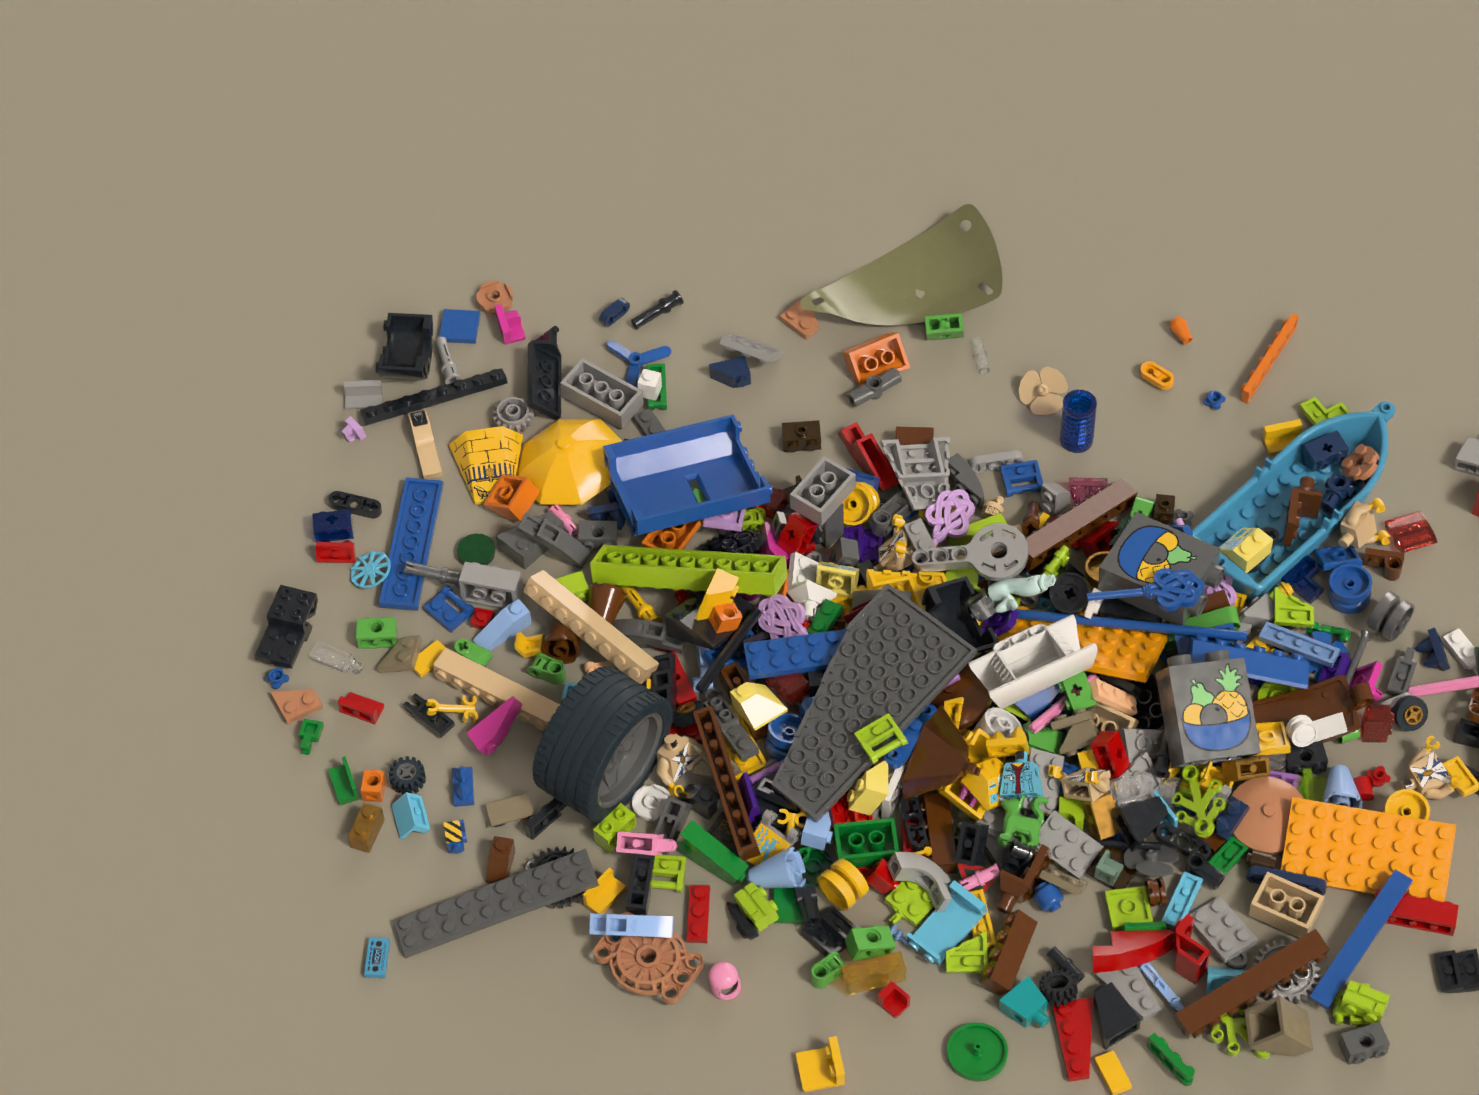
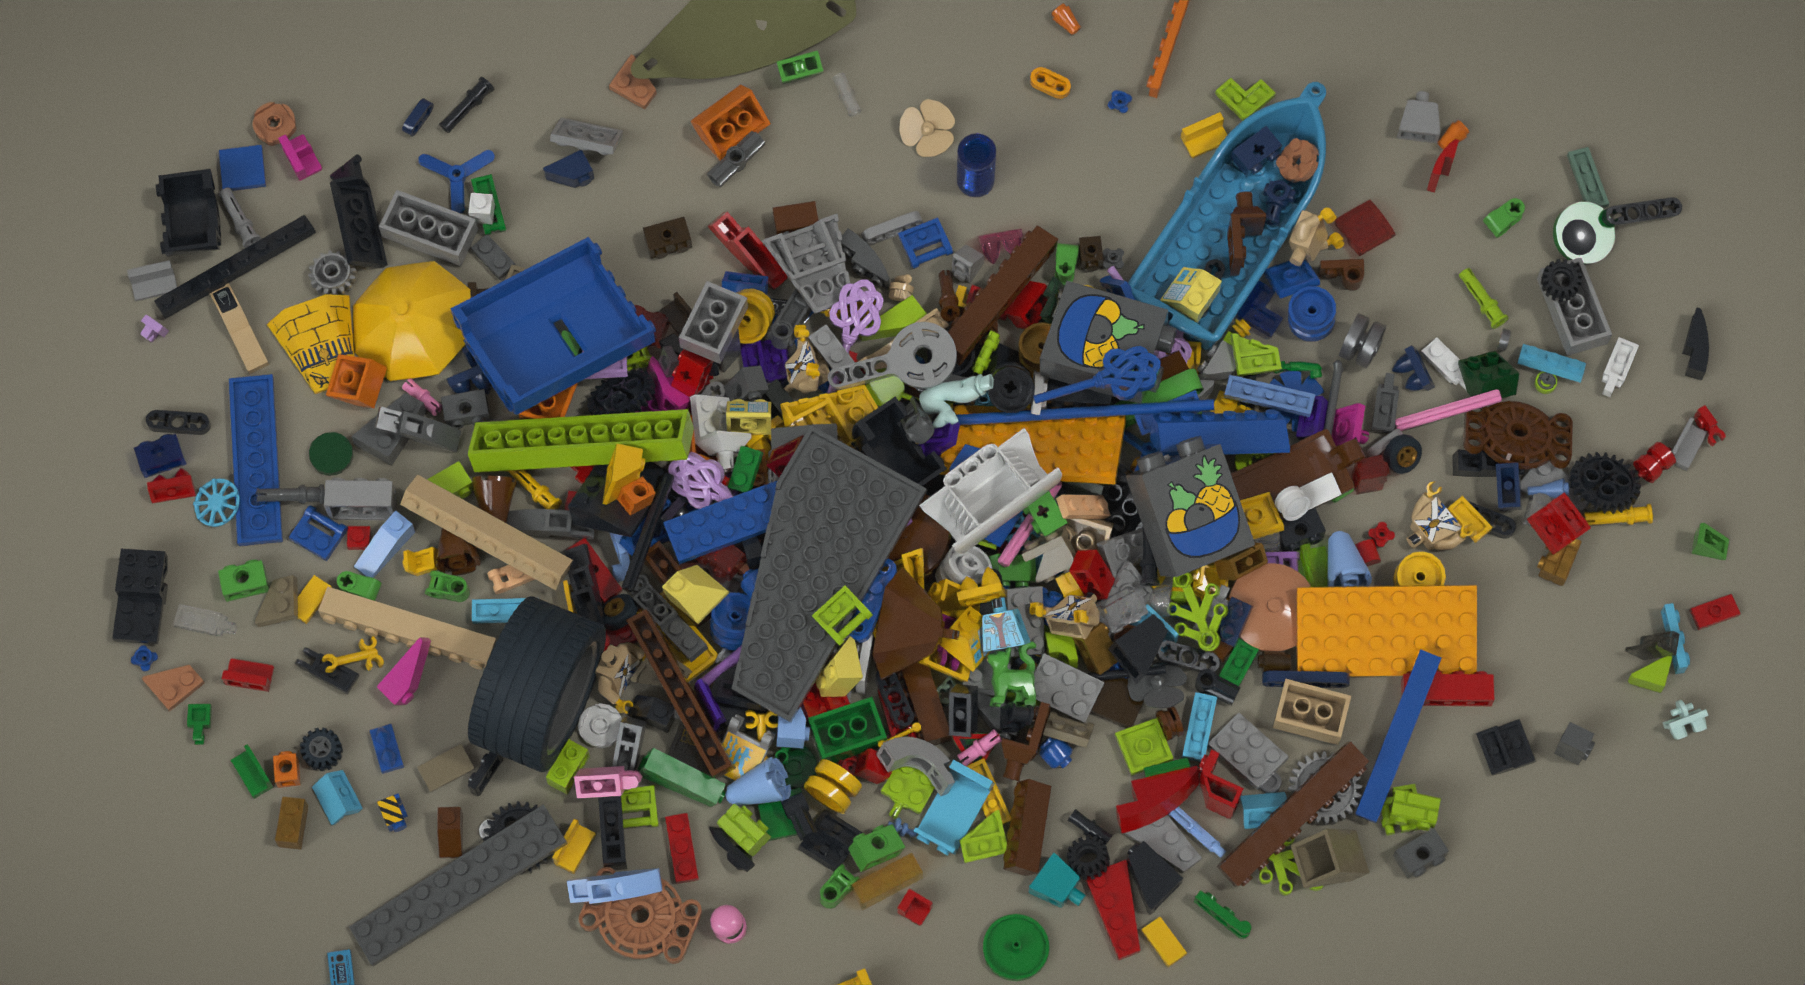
camera: 15 degrees left, 15 degrees up
(1108, 869) = (1115, 707): sand green panel -> none

